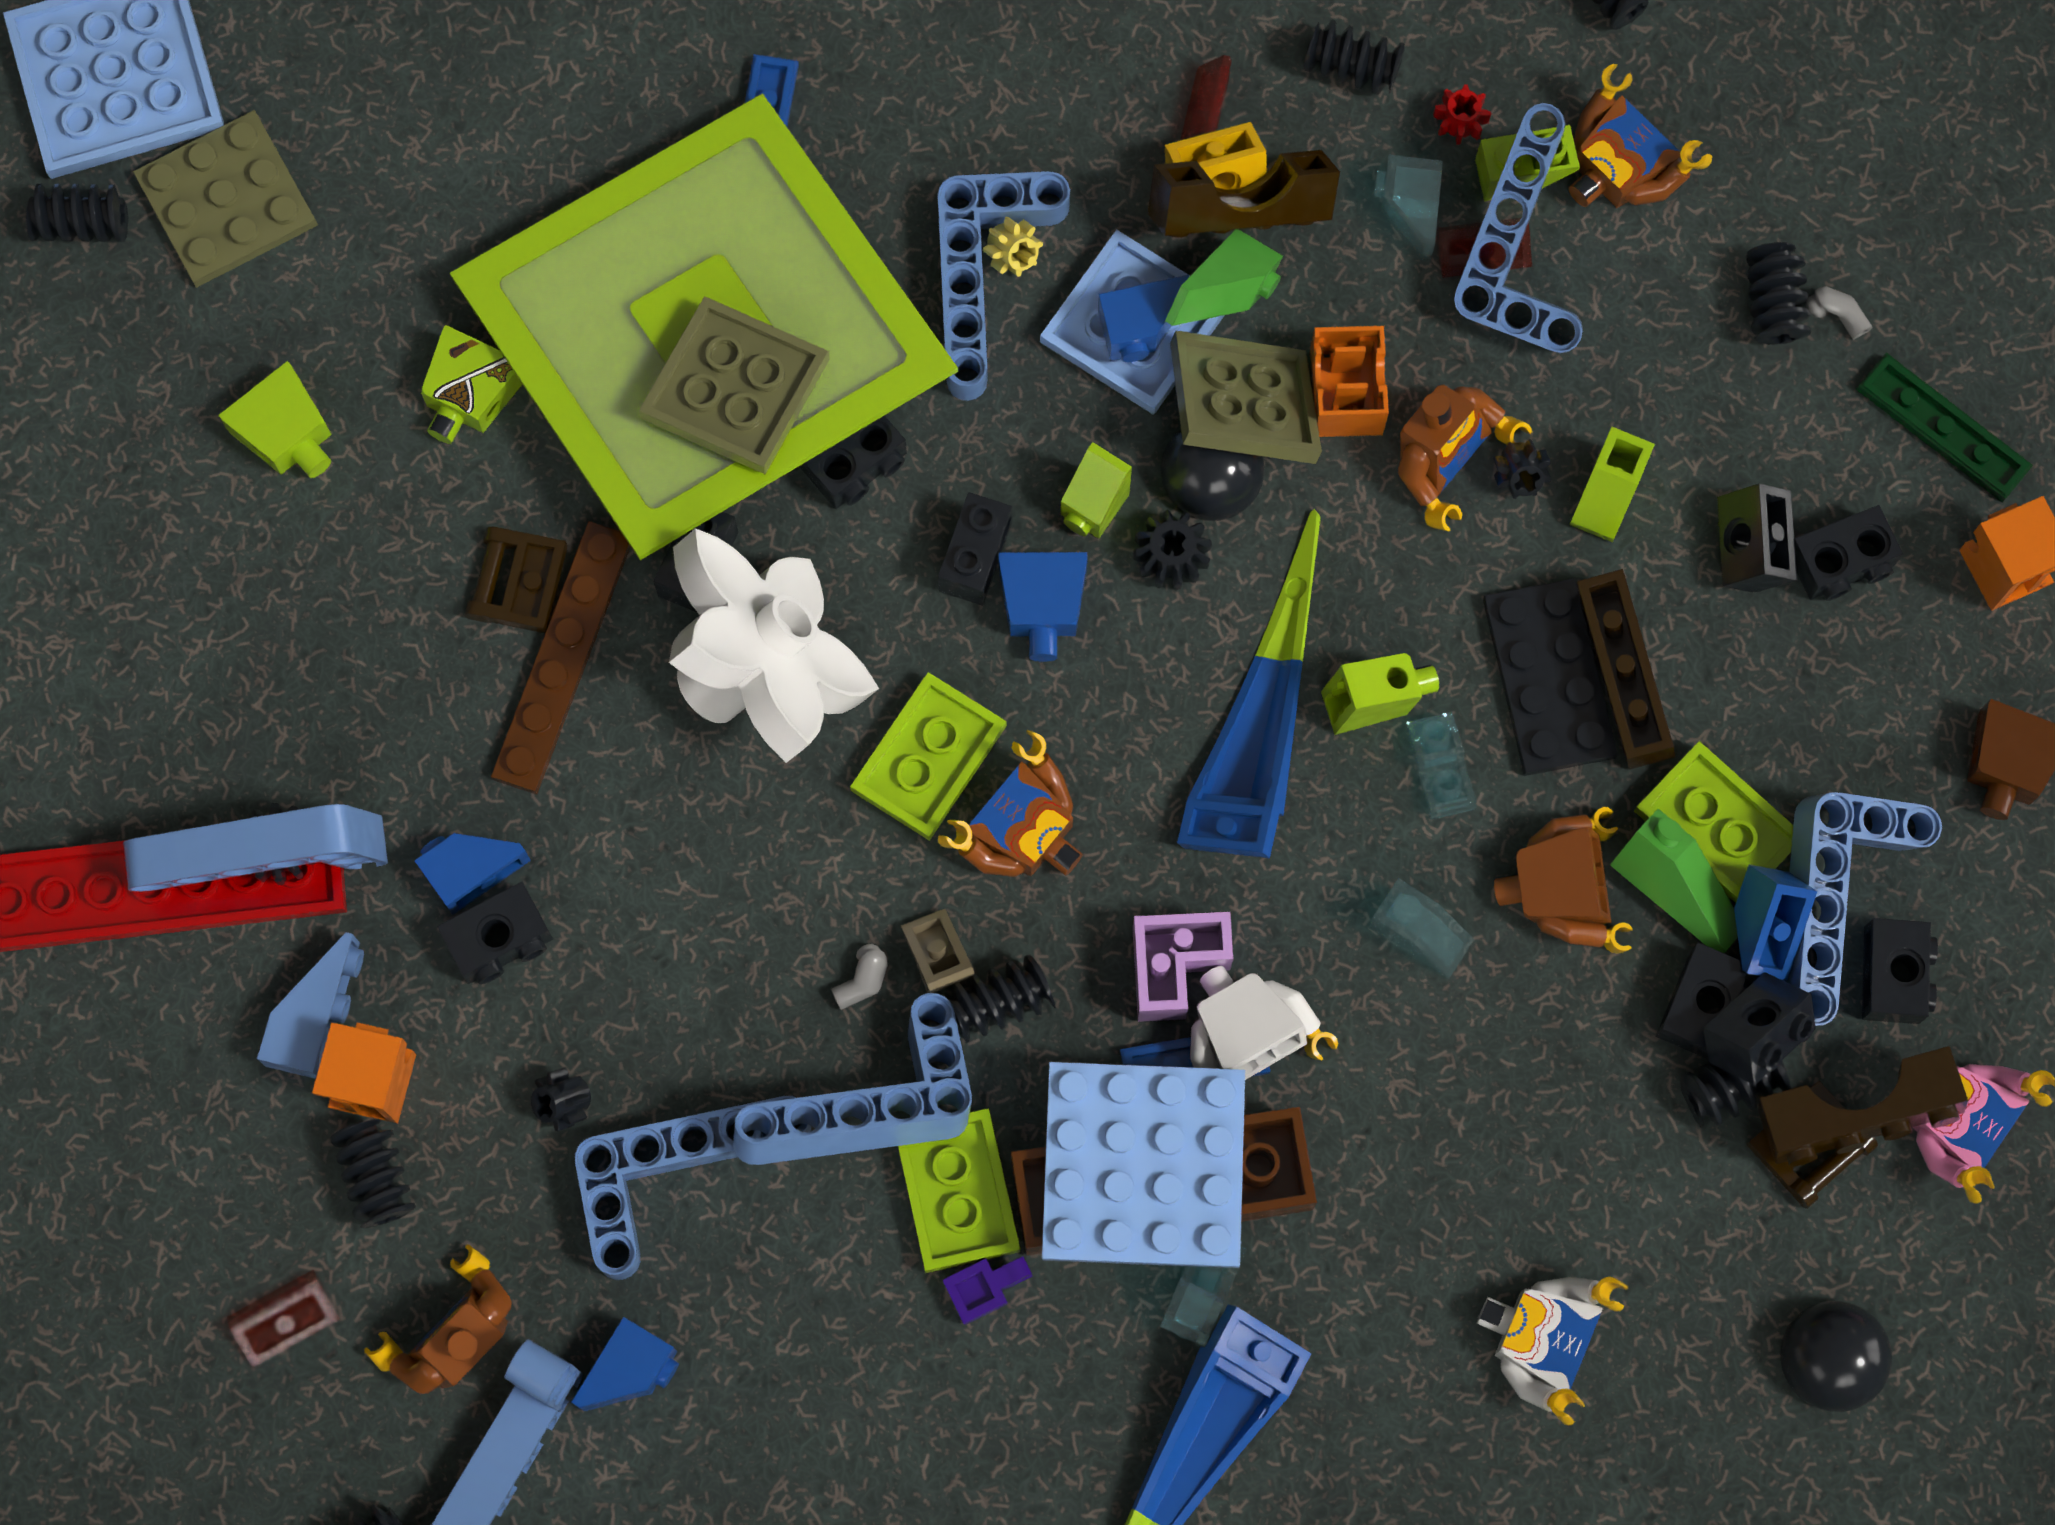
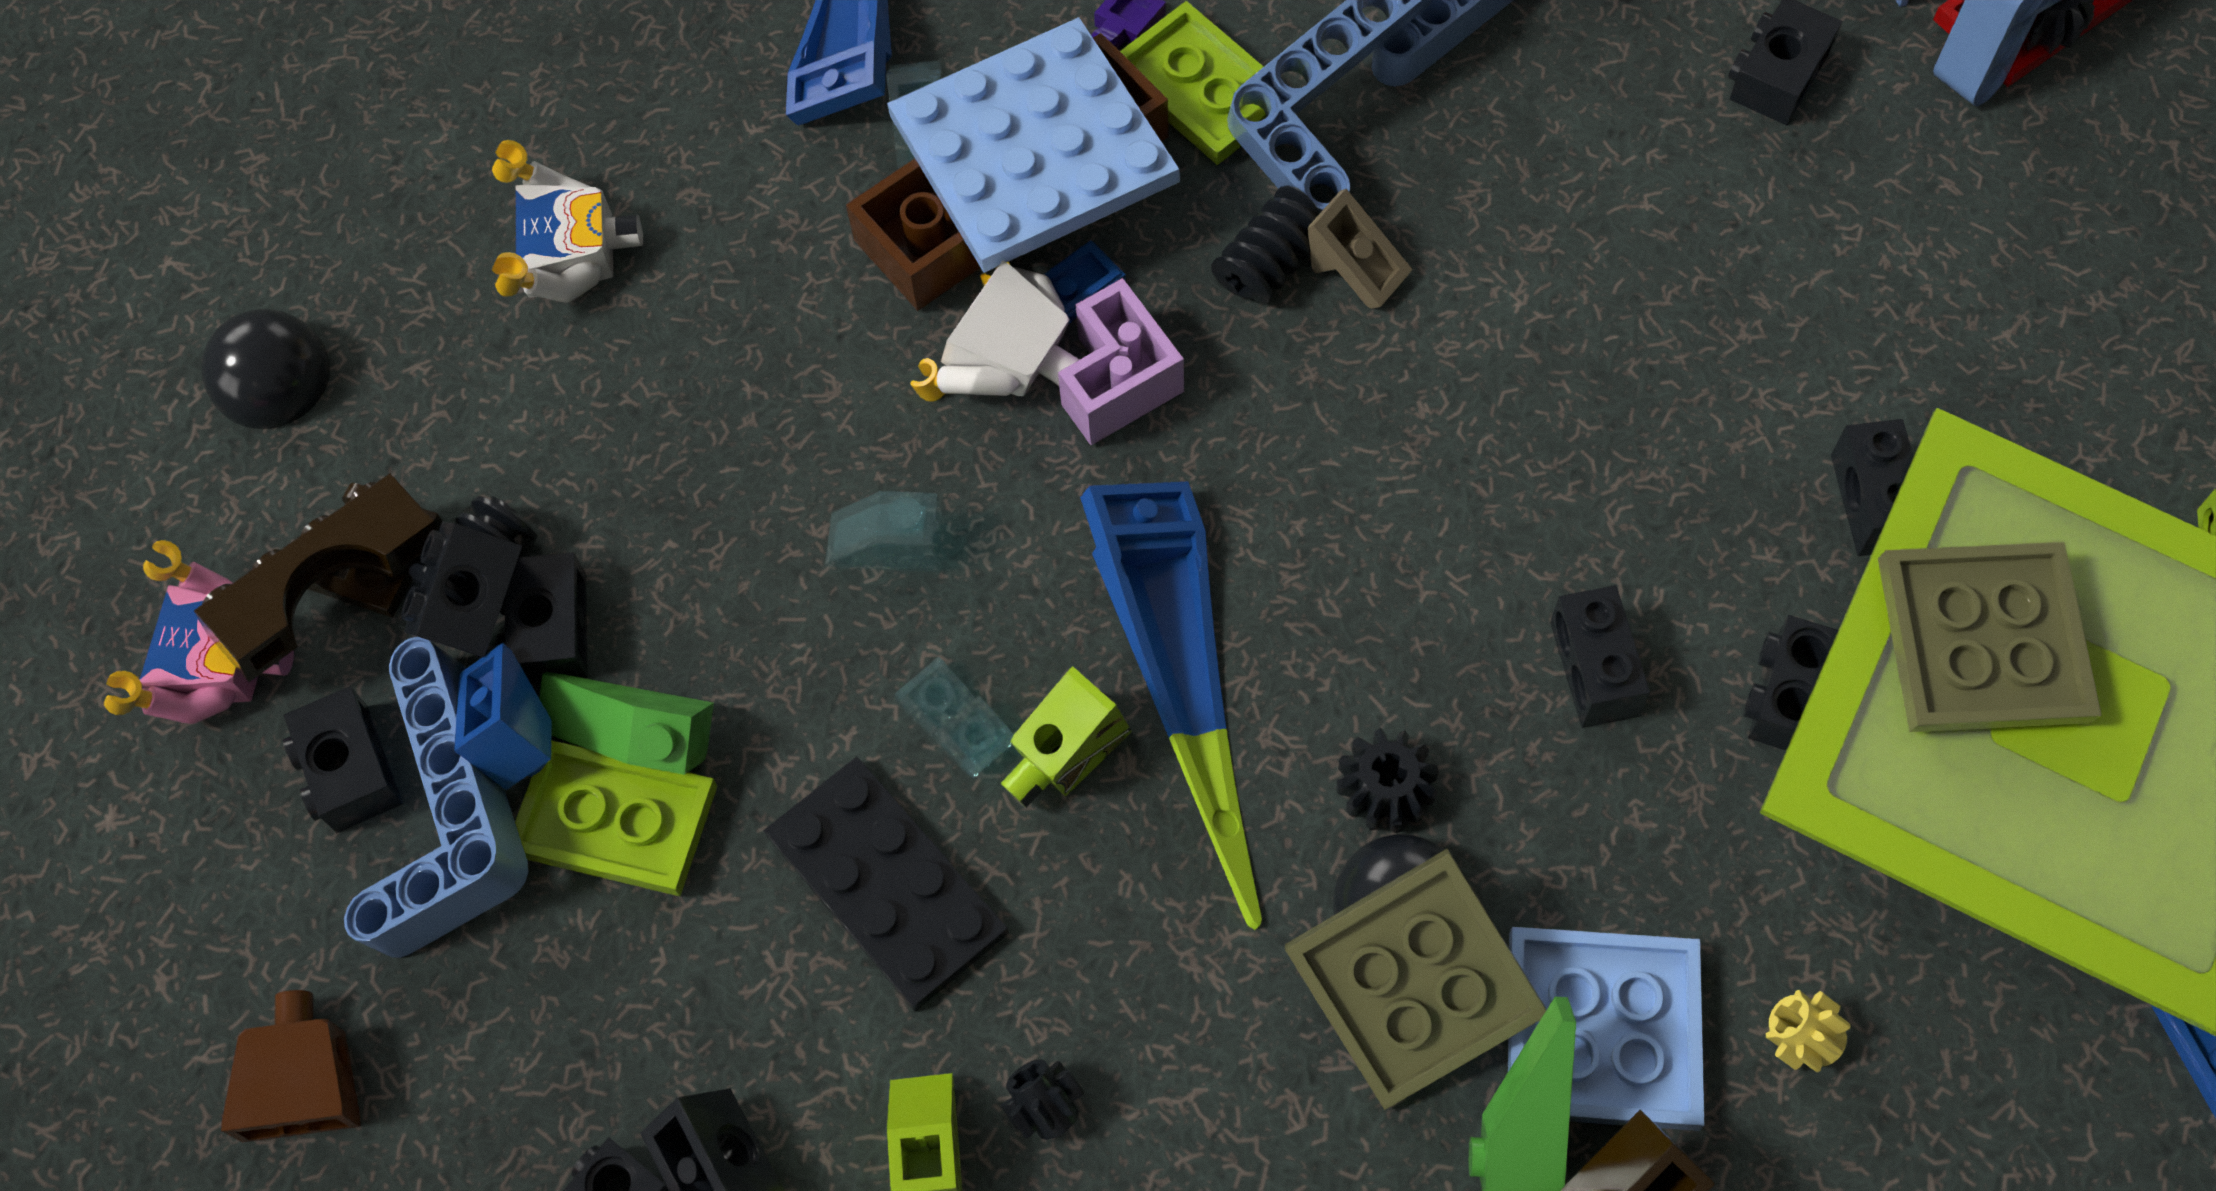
camera: 155 degrees right, 10 degrees down
(468, 866) = (1861, 98): blue slope -> none
(530, 583) = (2023, 384): dark brown plate -> none
(562, 658) = (1920, 309): reddish brown plate -> none
(761, 645) = (1743, 393): white plant -> none
(867, 977) = (1412, 210): light grey arm -> none
(928, 756) = (1498, 434): lime plate -> none
(967, 265) = (1858, 967): medium blue beam -> none
(1021, 820) = (1361, 410): torso -> none
(1043, 597) = (1493, 649): blue torso -> none
(1096, 492) = (1511, 786): lime slope -> none
(1136, 318) = (1608, 1002): blue slope -> none
(1351, 382) = (1312, 1088): orange piece -> none
(1443, 439) = (1154, 1079): dark orange torso -> none
(1565, 882) = (753, 654): dark orange torso -> none
(1626, 669) = (798, 917): dark brown brick -> none

